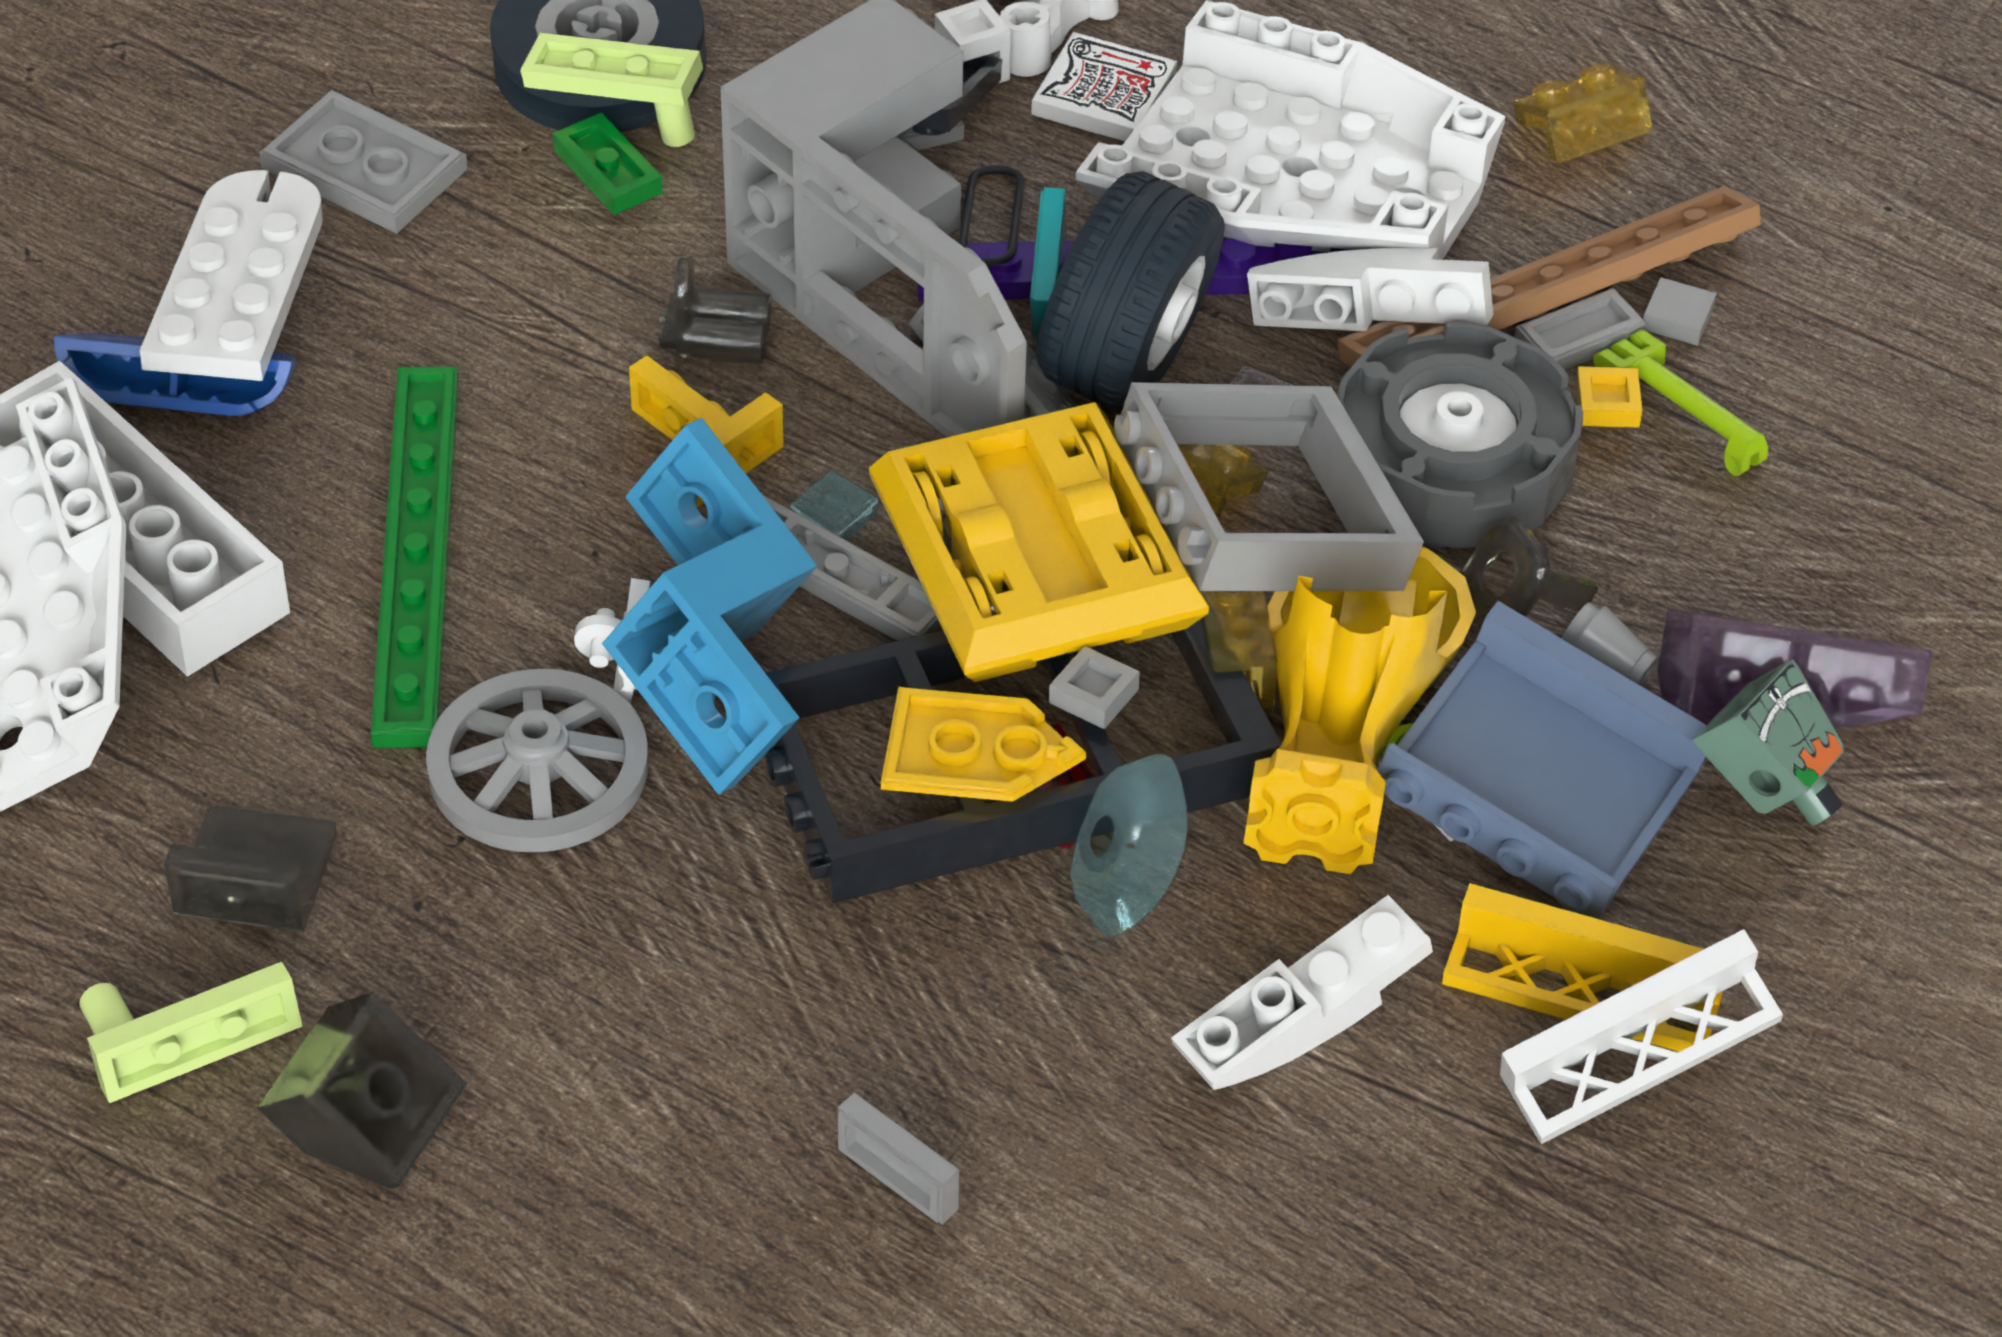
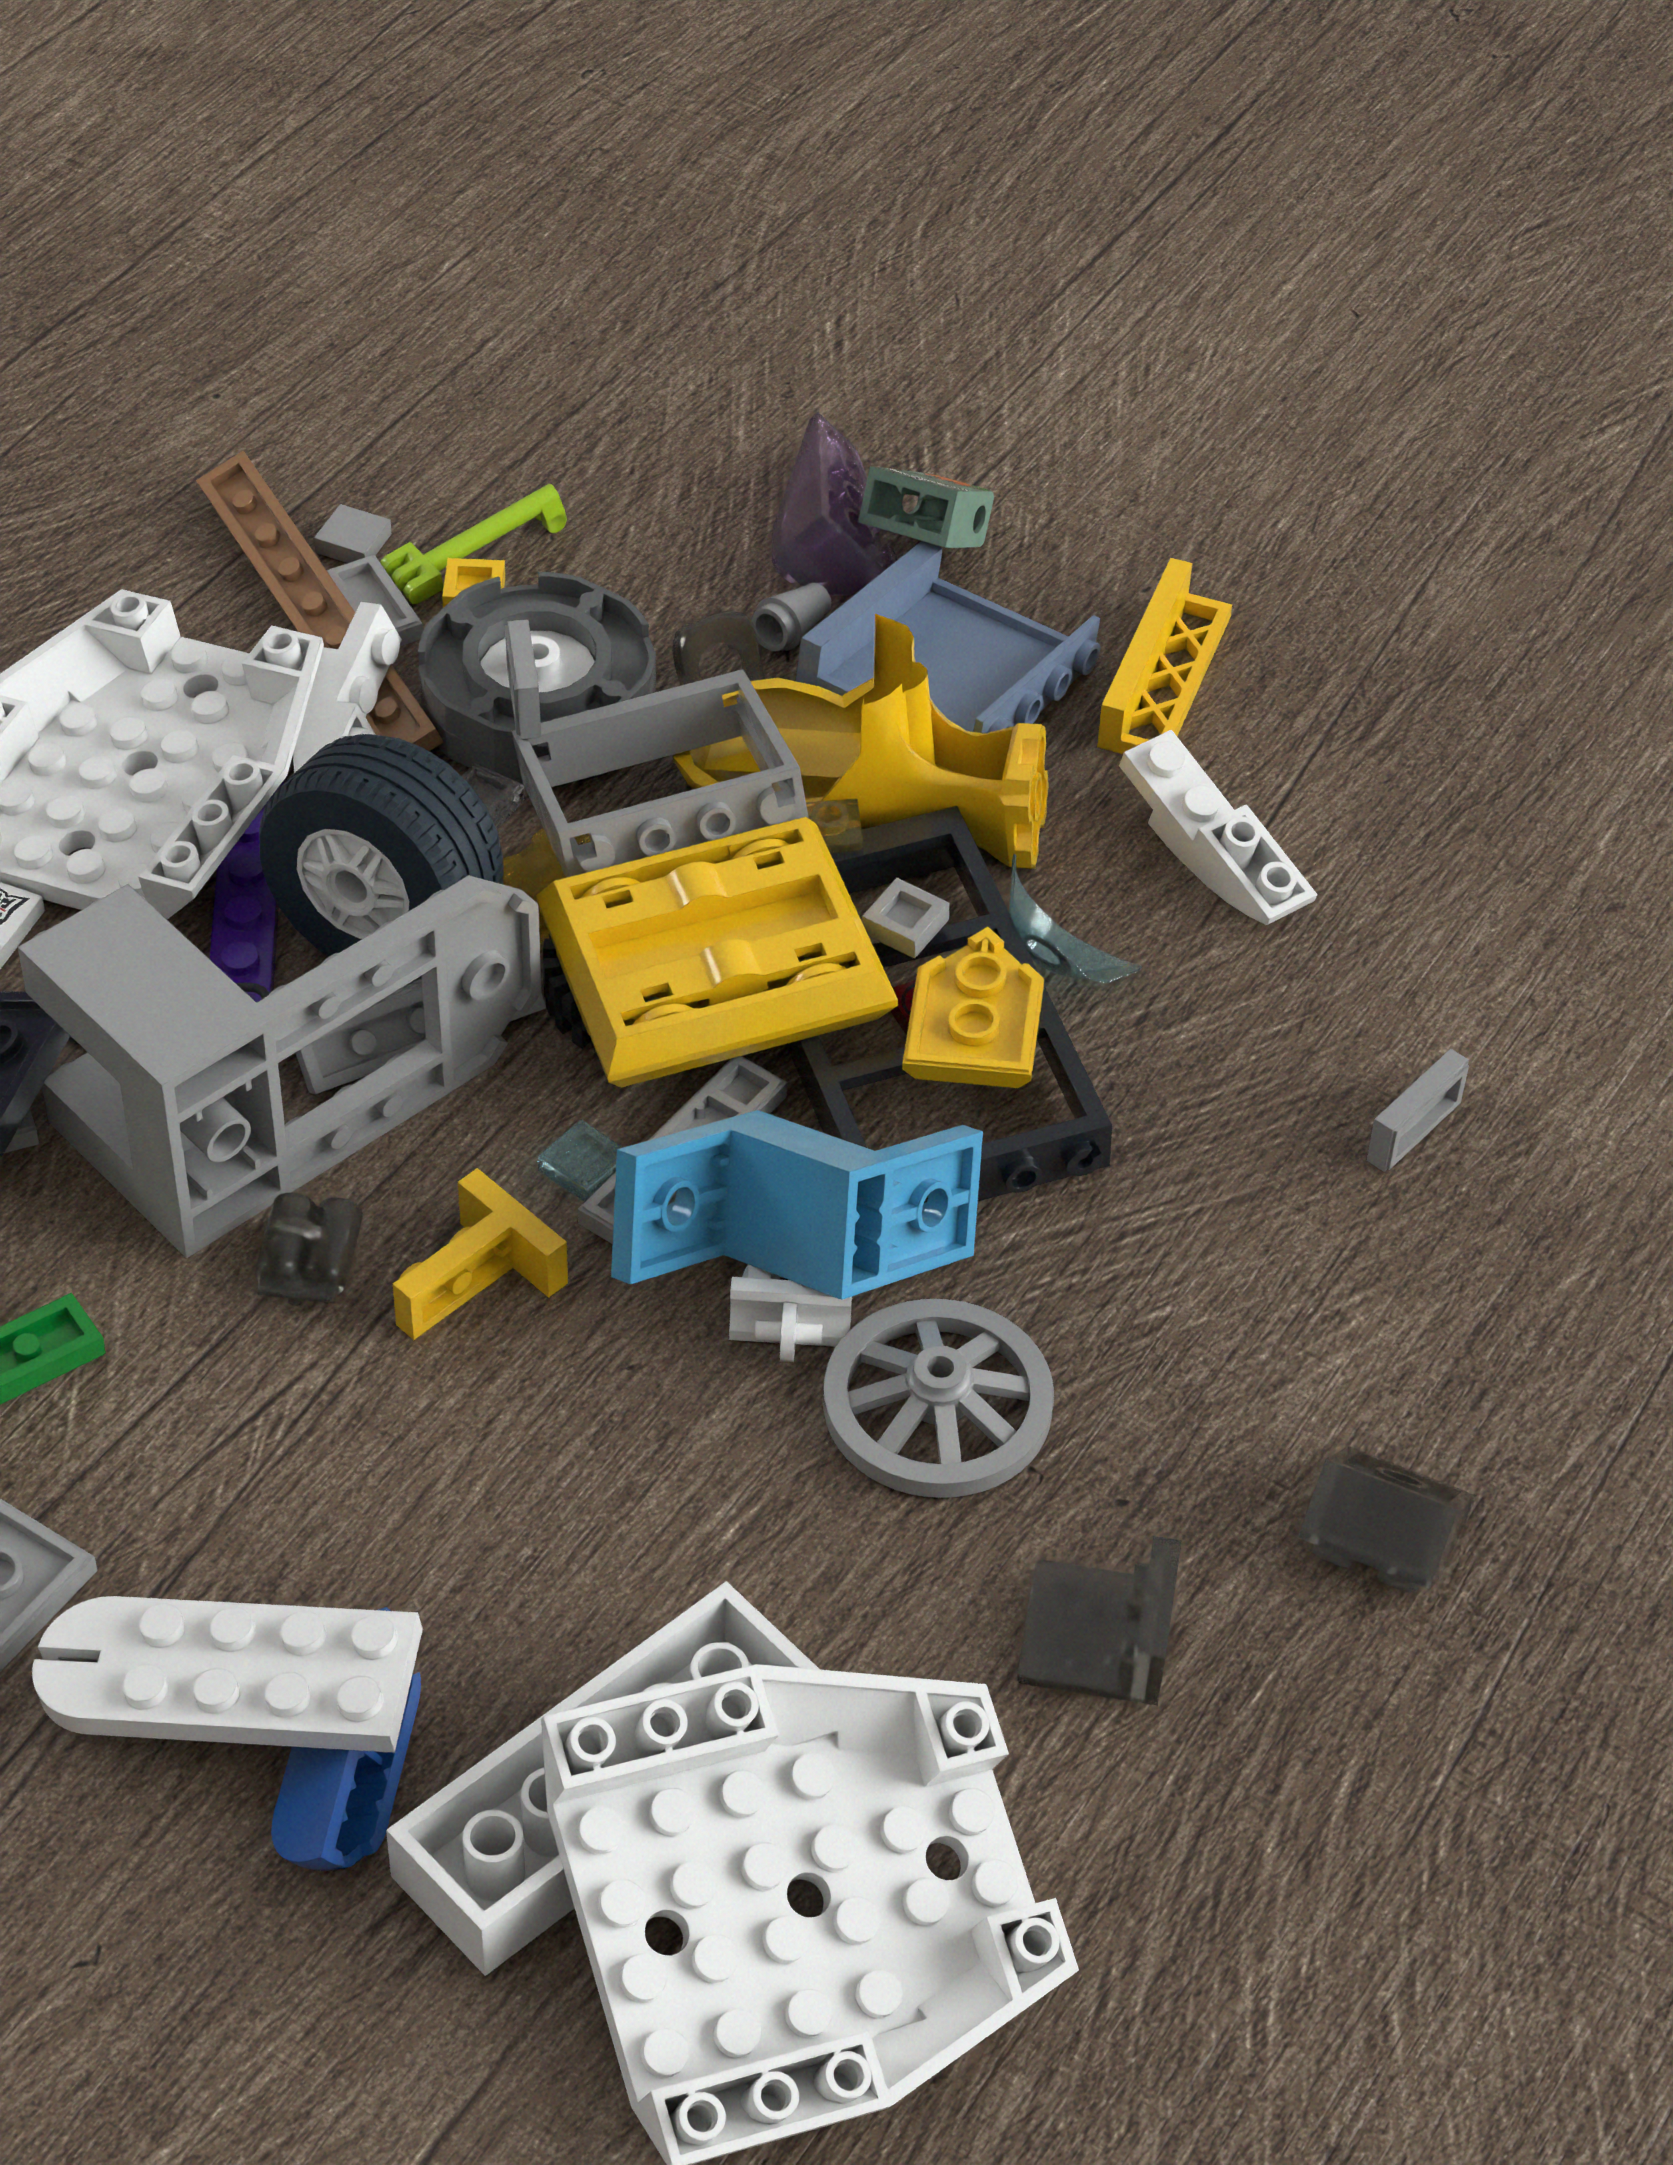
camera: 90 degrees left, 0 degrees up
(187, 1034) = (1360, 1706): yellowish green piece -> none
(415, 558) = (630, 1518): green tile -> none
(1048, 252) = (296, 927): teal tile -> none
(1378, 372) = (523, 679): none -> light grey tile
(1587, 112) = (60, 564): clear yellow bracket -> none
(1629, 1014) = (1251, 623): white fence -> none

